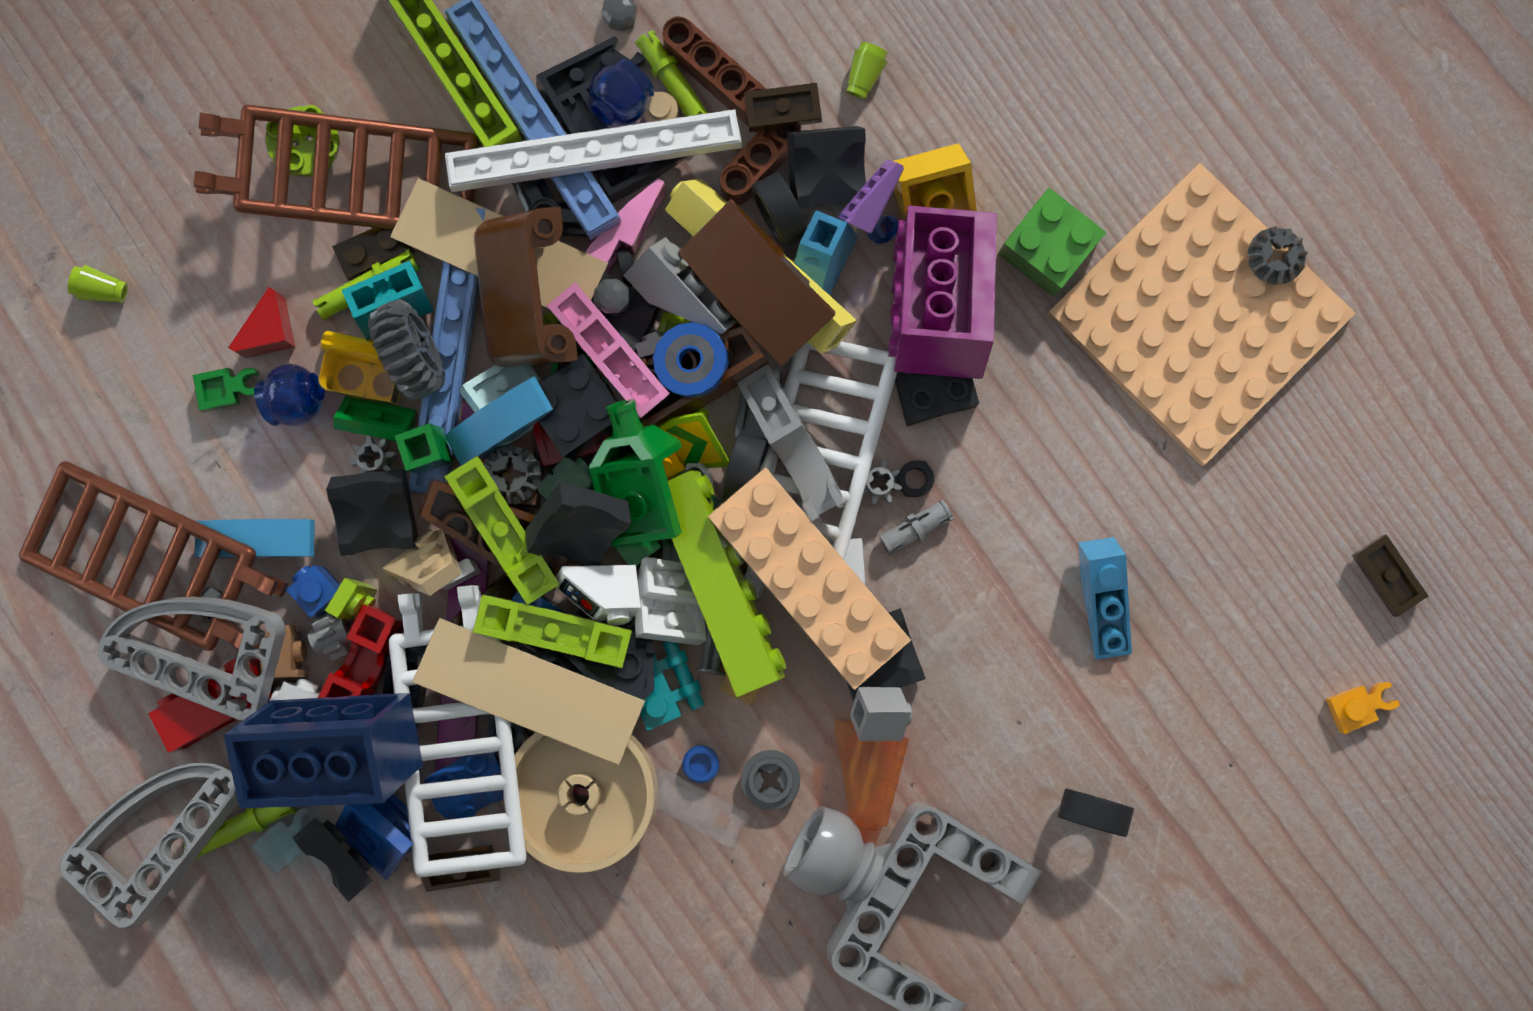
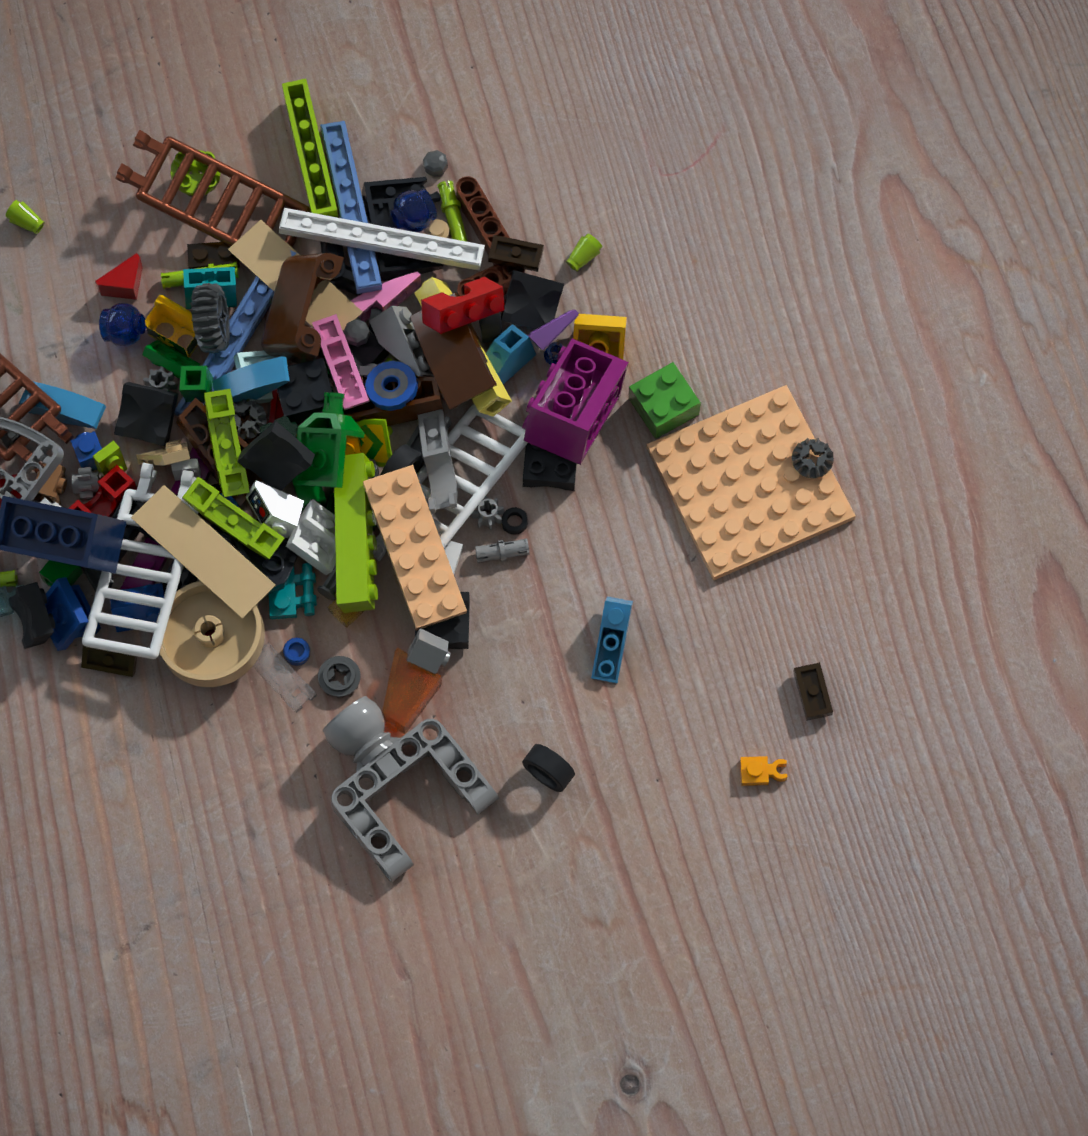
camera: 20 degrees right, 15 degrees down
(221, 389) = (78, 307): green plate -> none
(737, 237) = (448, 312): none -> red arch

